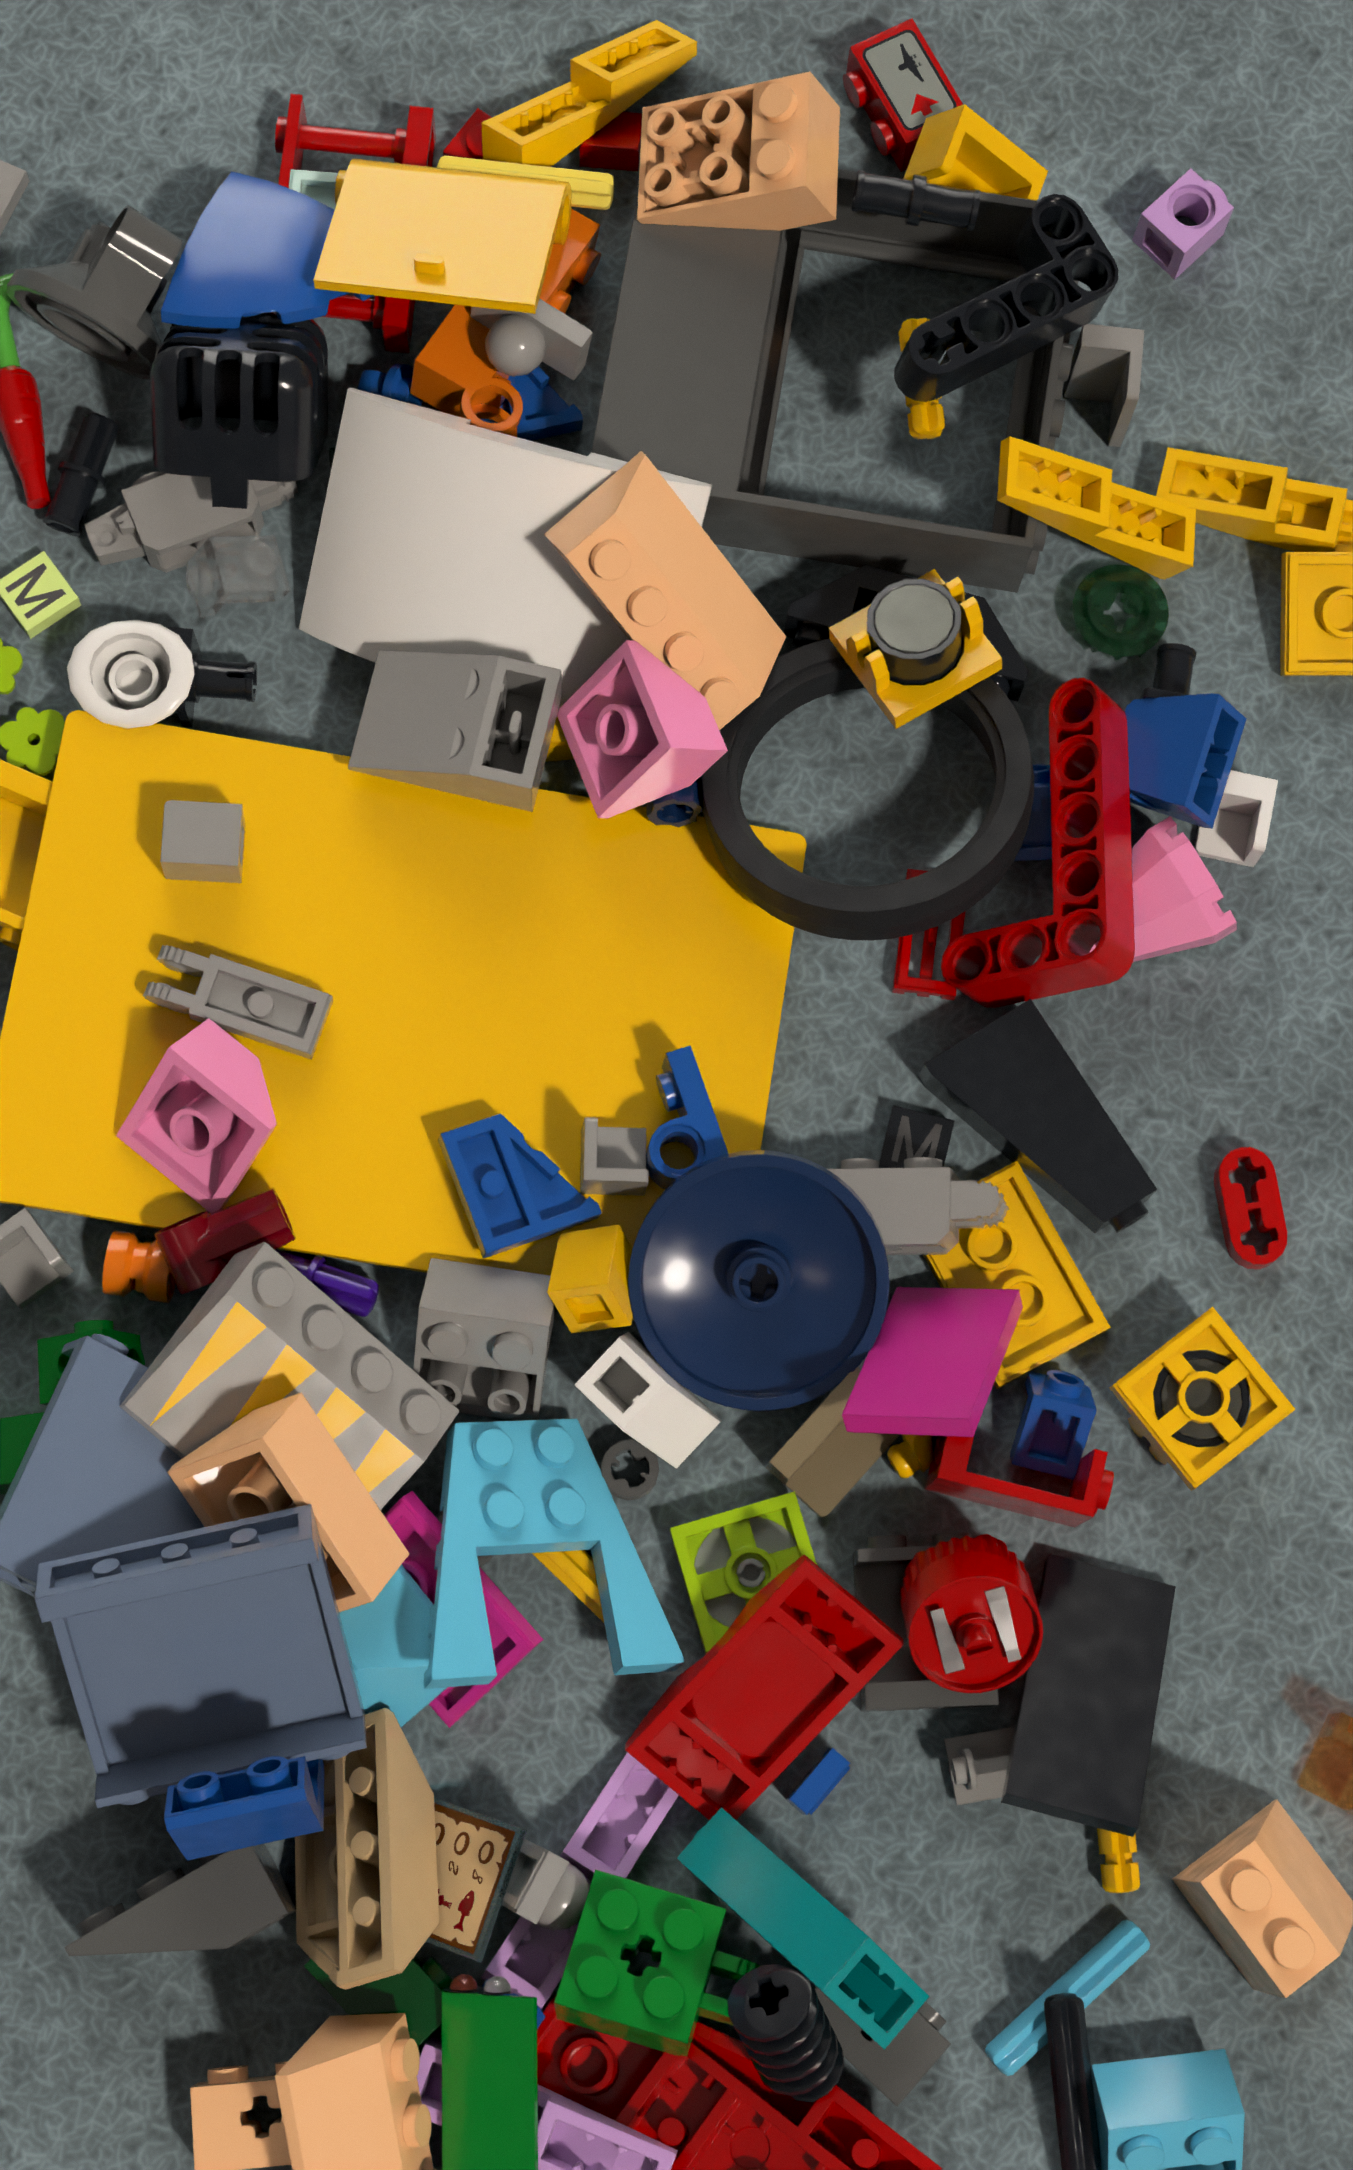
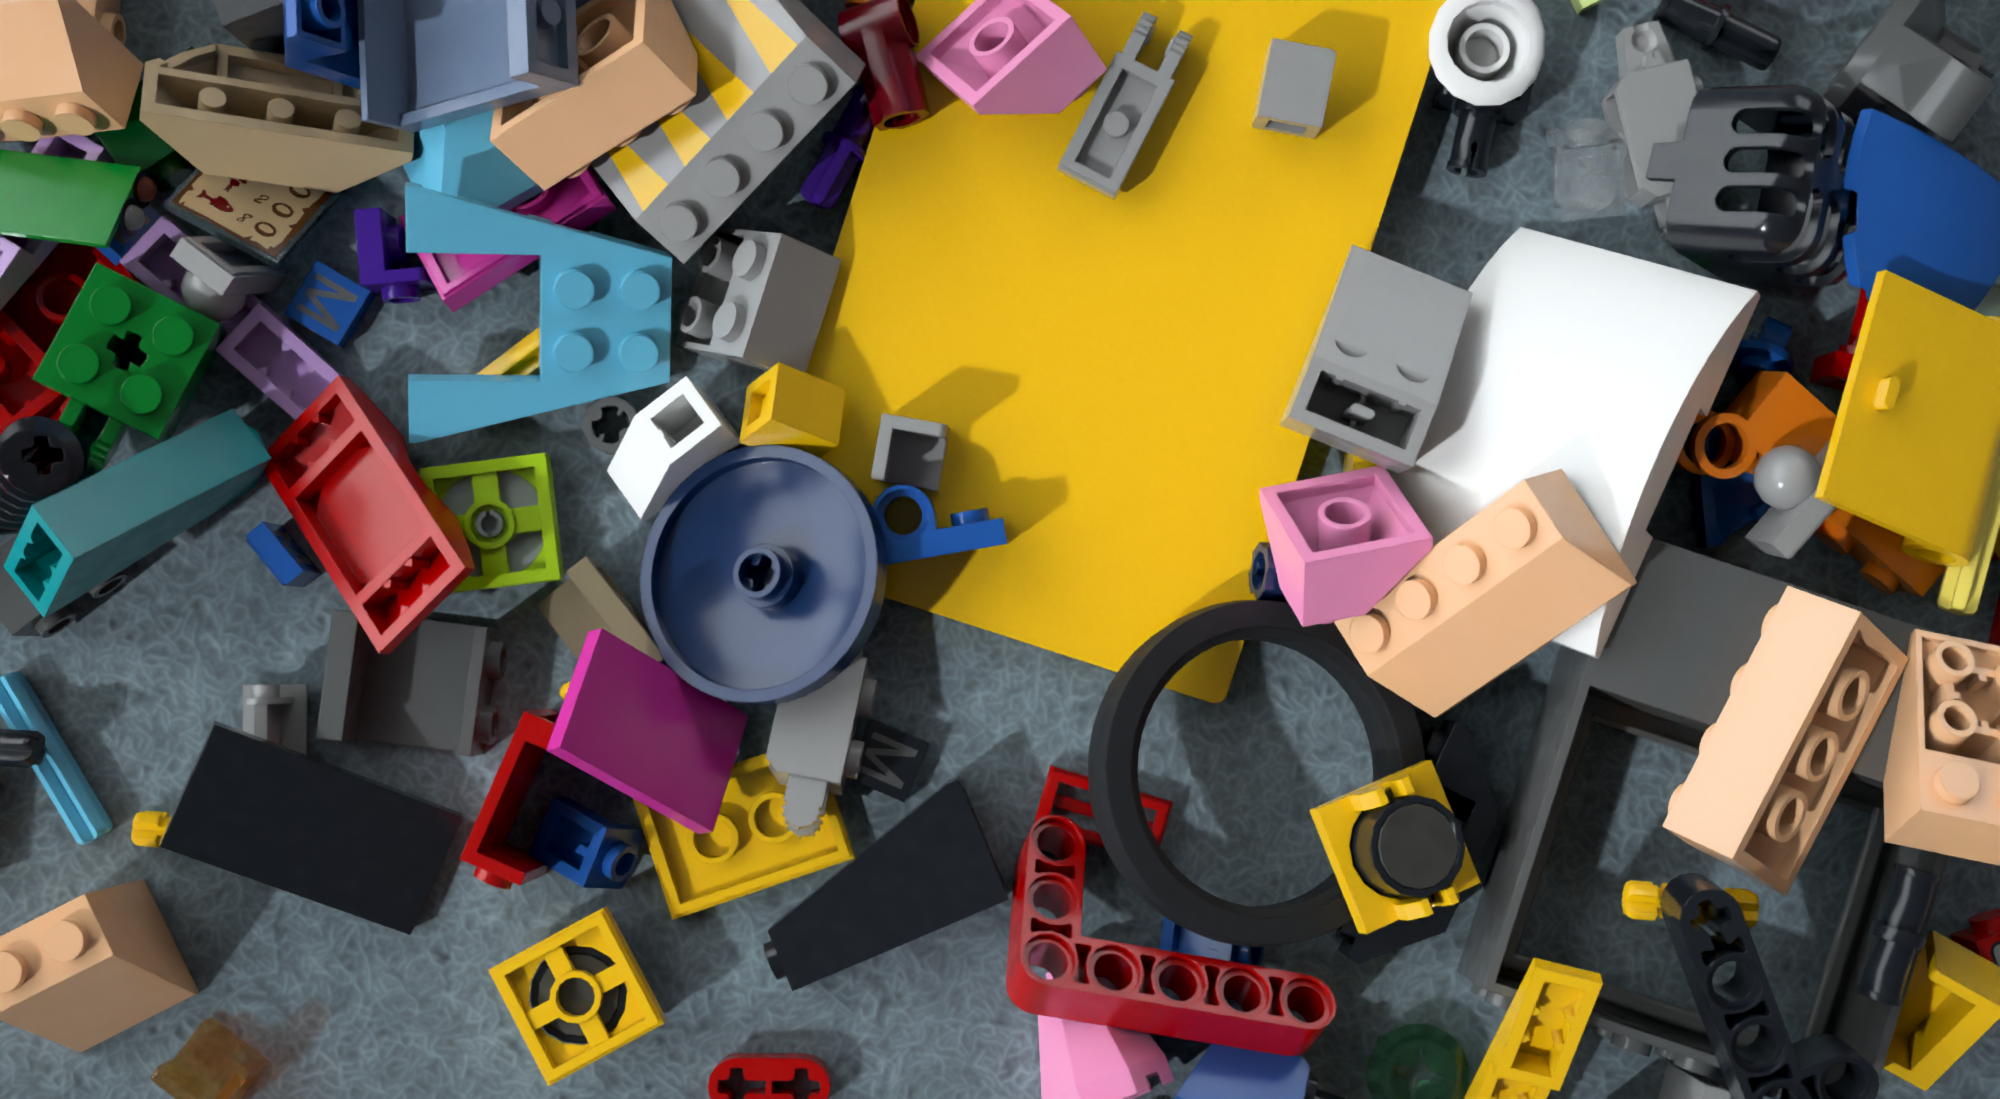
camera: 105 degrees right, 10 degrees up
(485, 1734) = (380, 252): none -> dark purple bracket
(509, 1187) = (897, 347): blue wing -> none
(549, 1785) = (330, 304): none -> blue tile
(757, 314) = (1786, 738): none -> light nougat slope
(971, 1614) = (399, 724): red piece -> none

